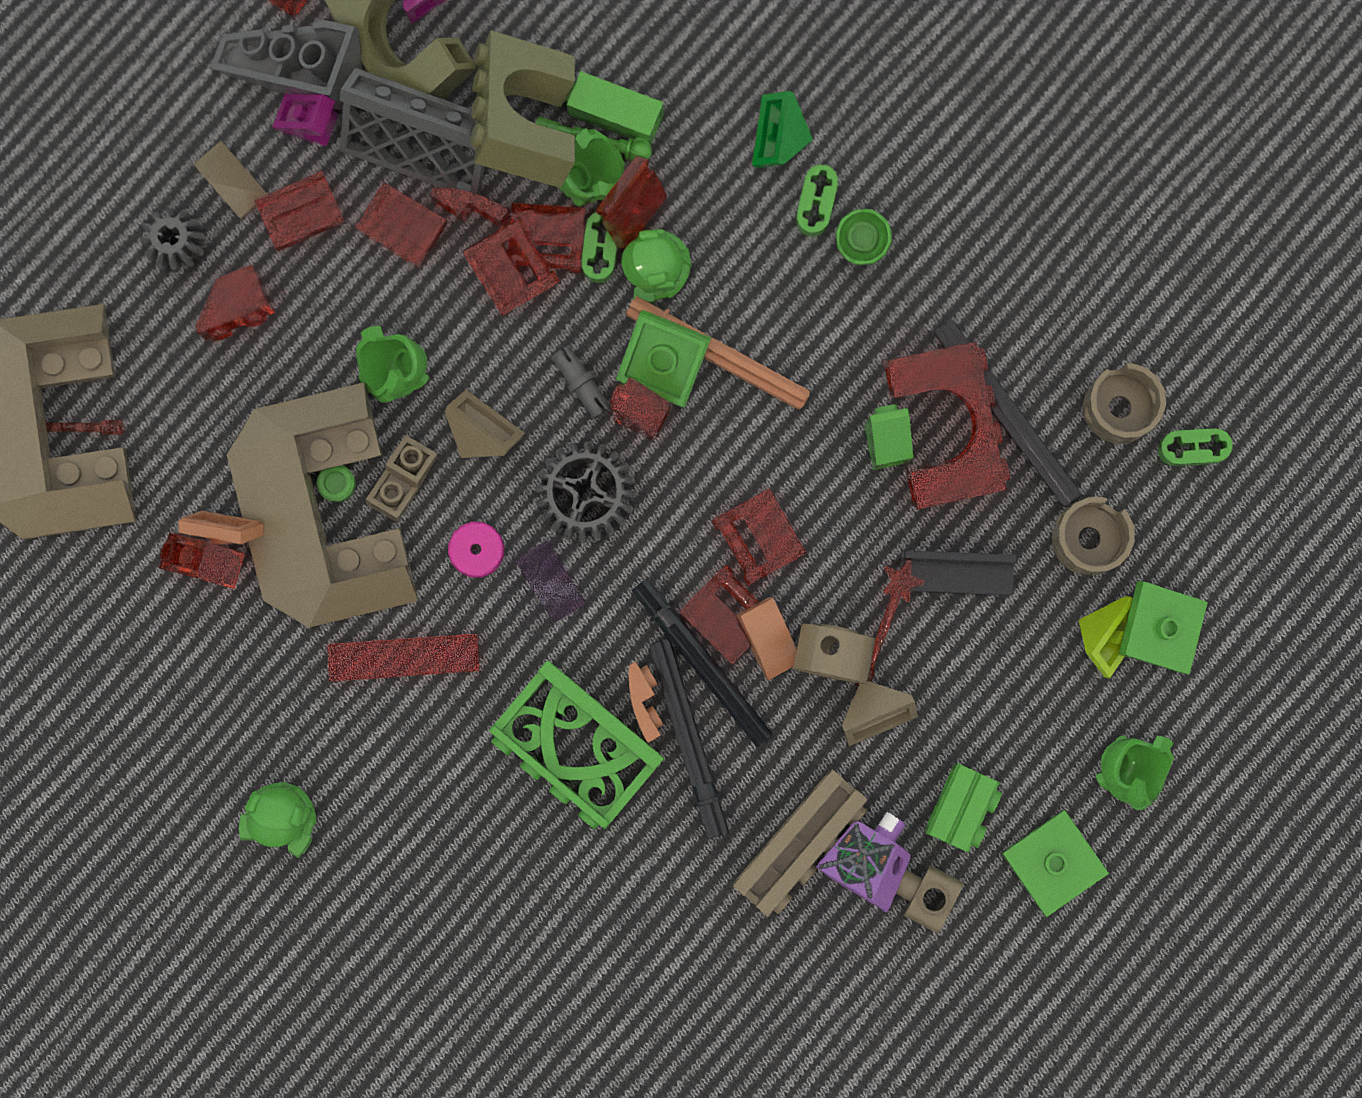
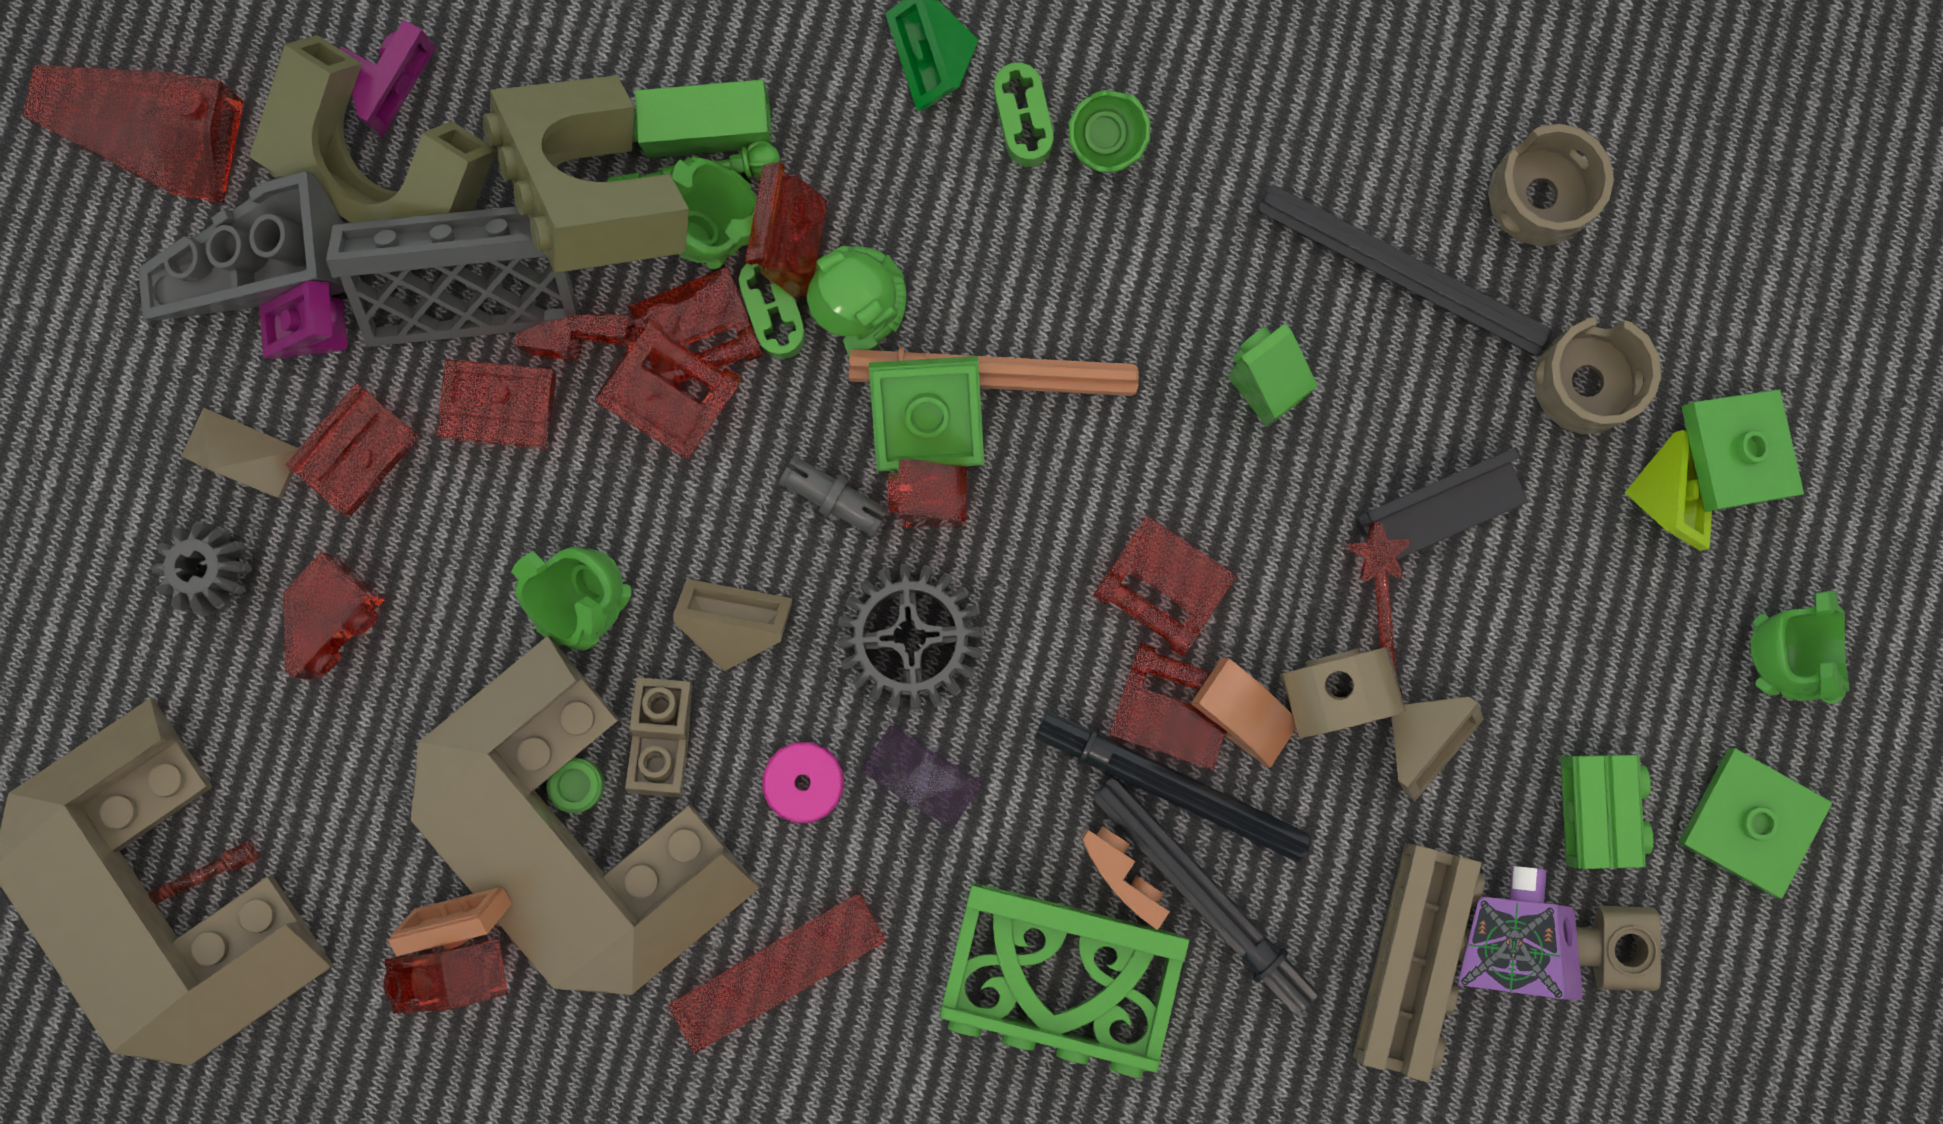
camera: 30 degrees left, 0 degrees up
(978, 466) = (1403, 353): clear red arch -> none
(1195, 438) = (1668, 209): bright green beam -> none

